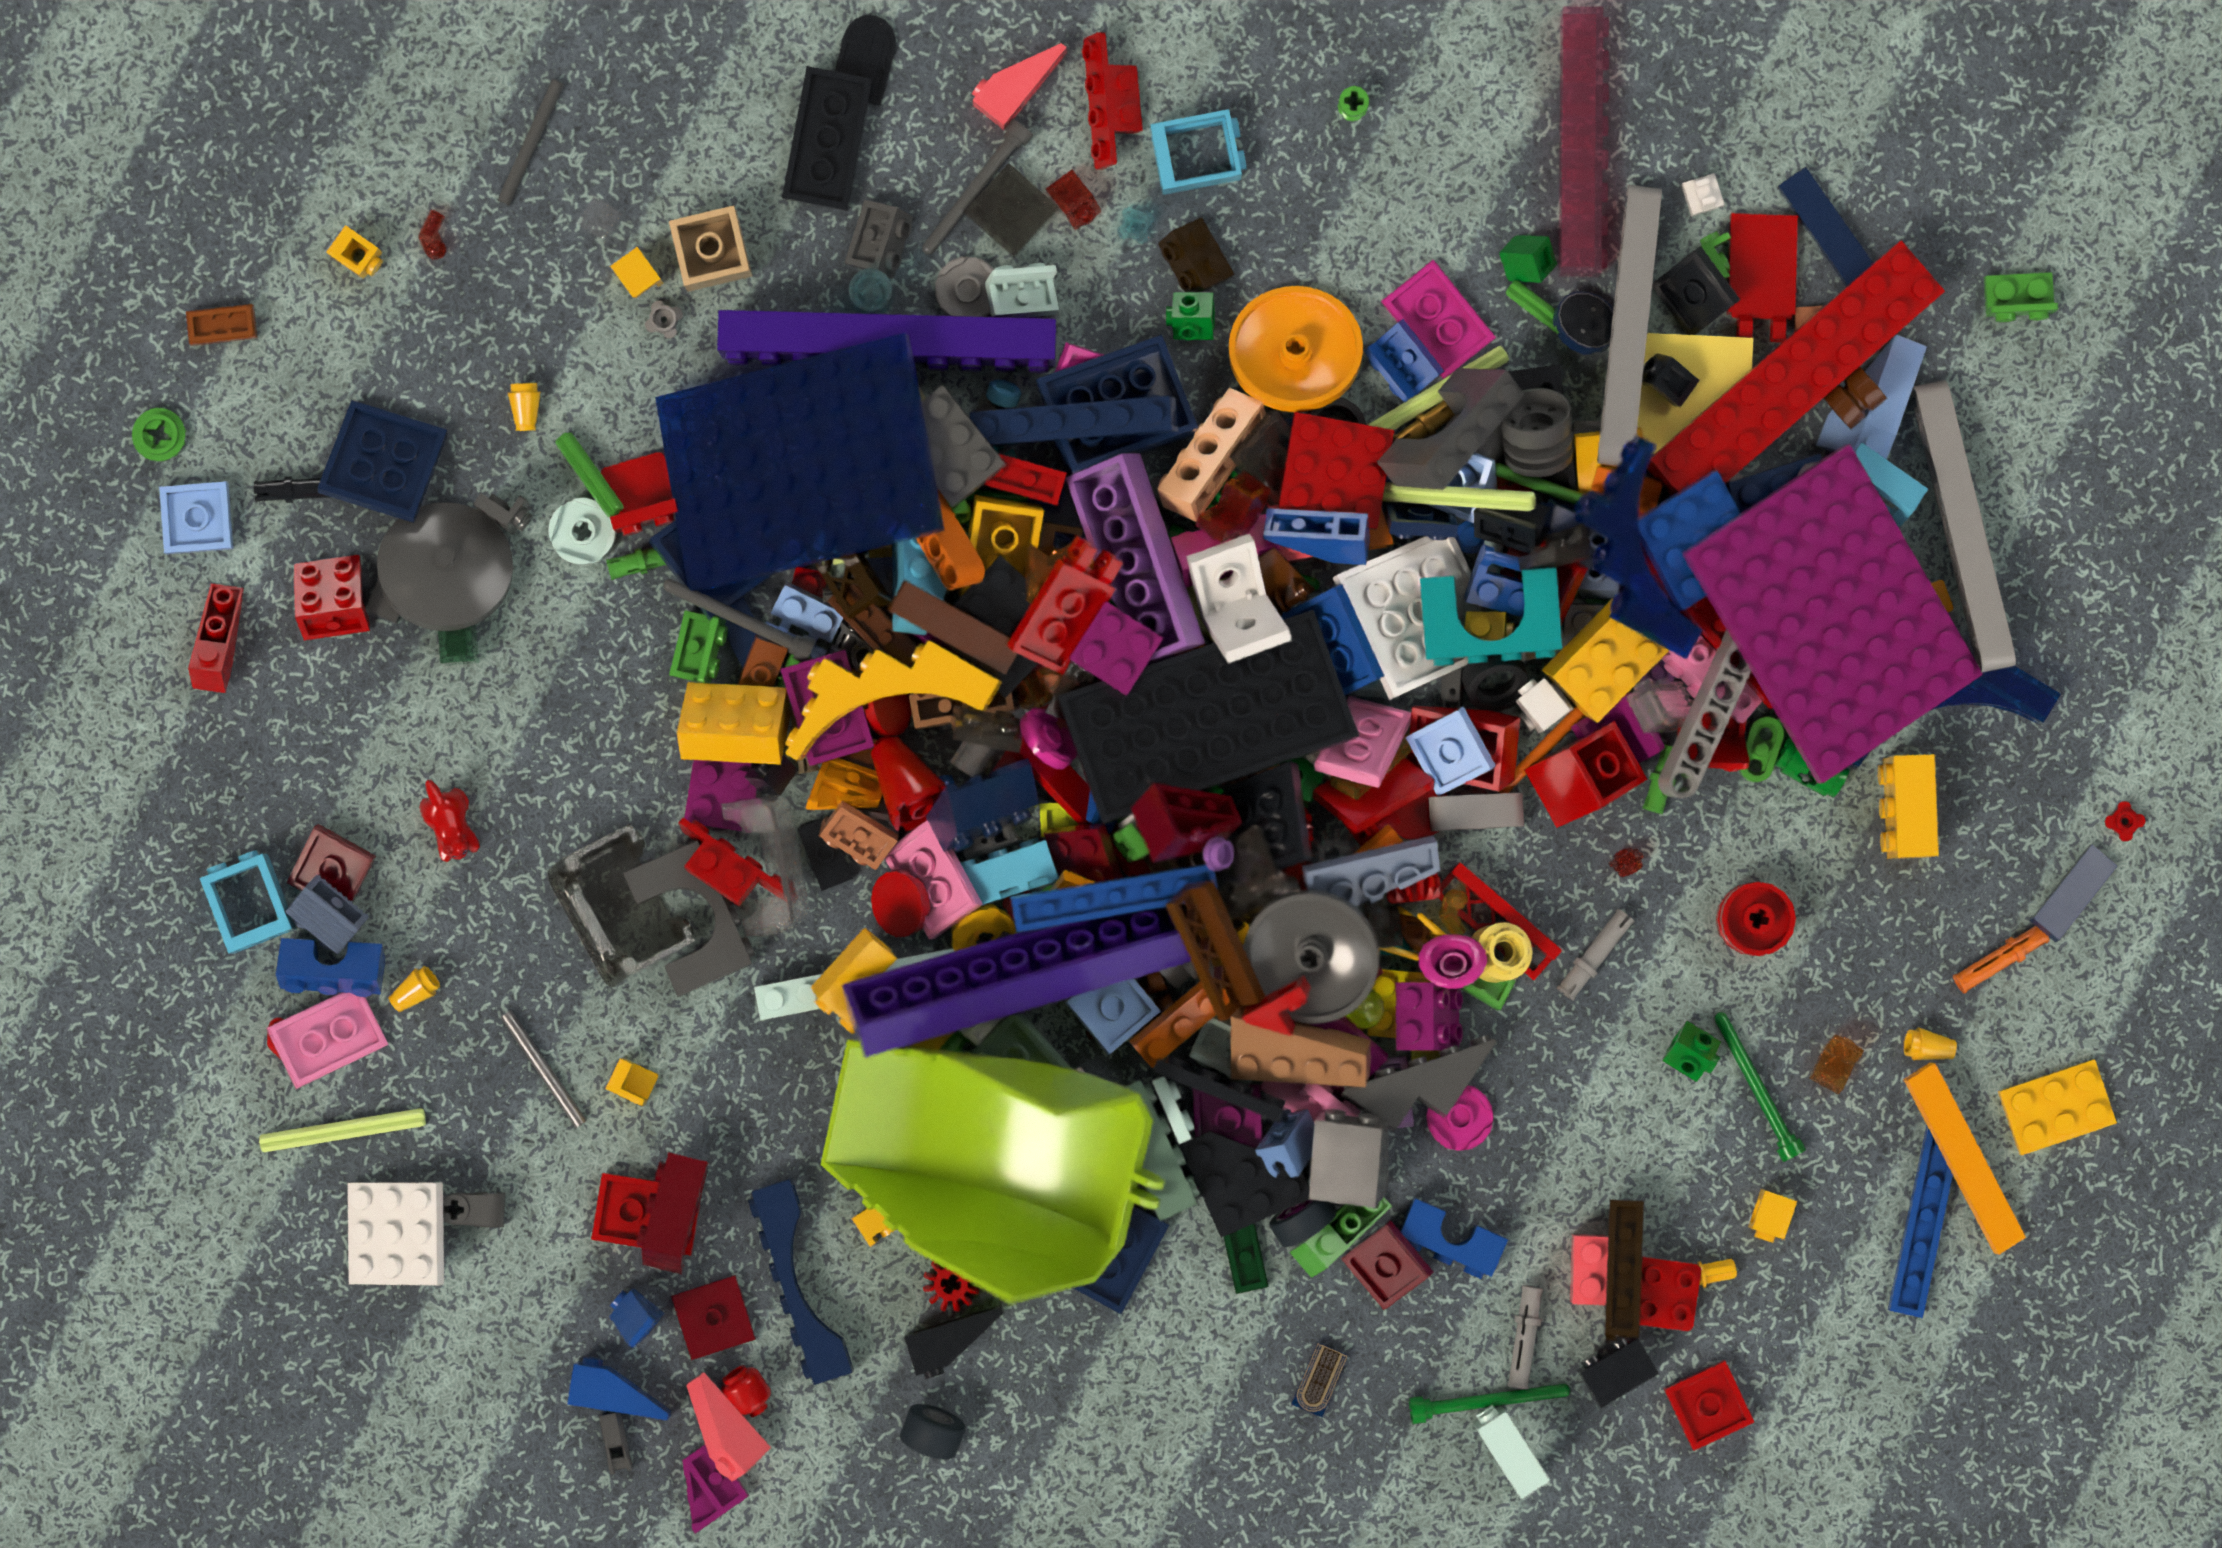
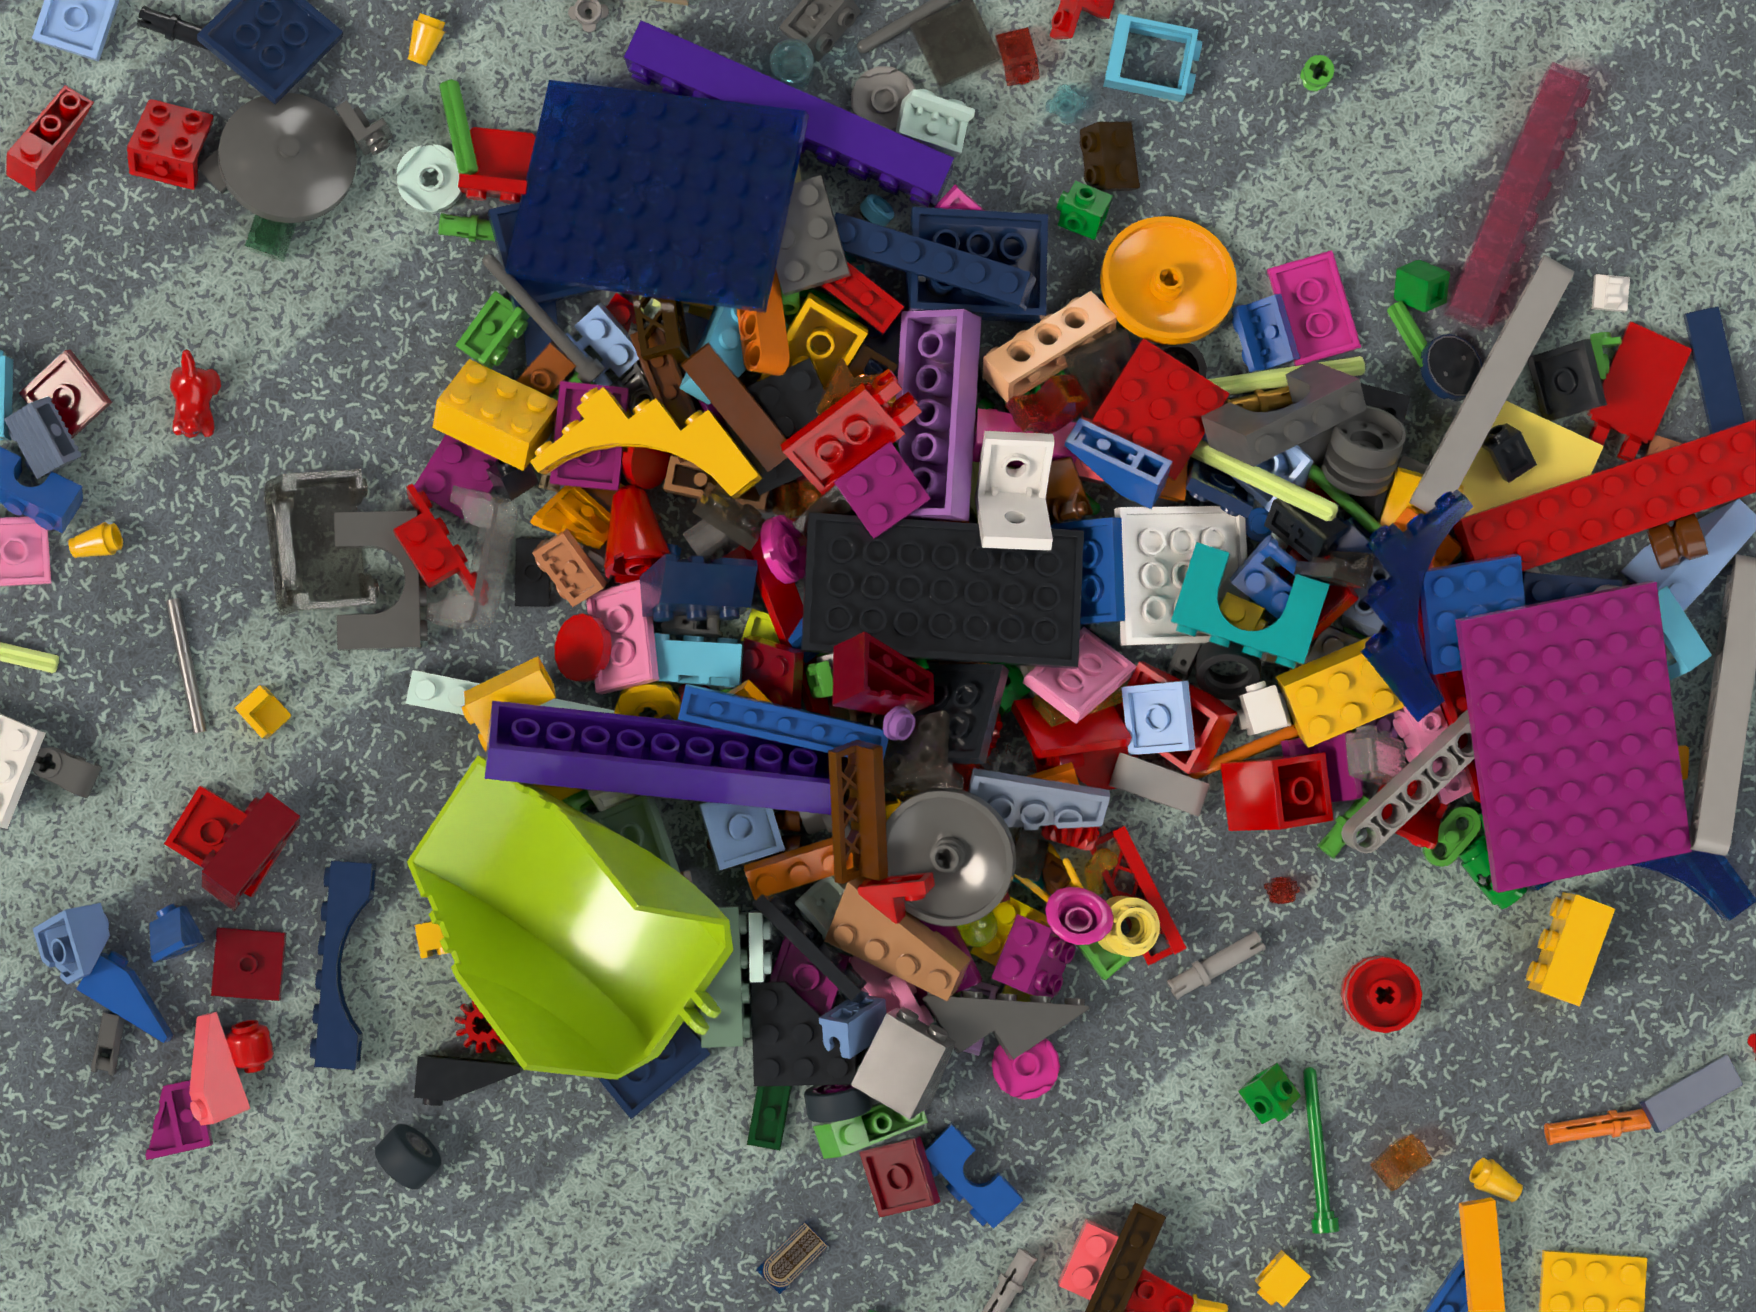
camera: 20 degrees right, 0 degrees up
(545, 1362) = (73, 940): none -> medium blue slope

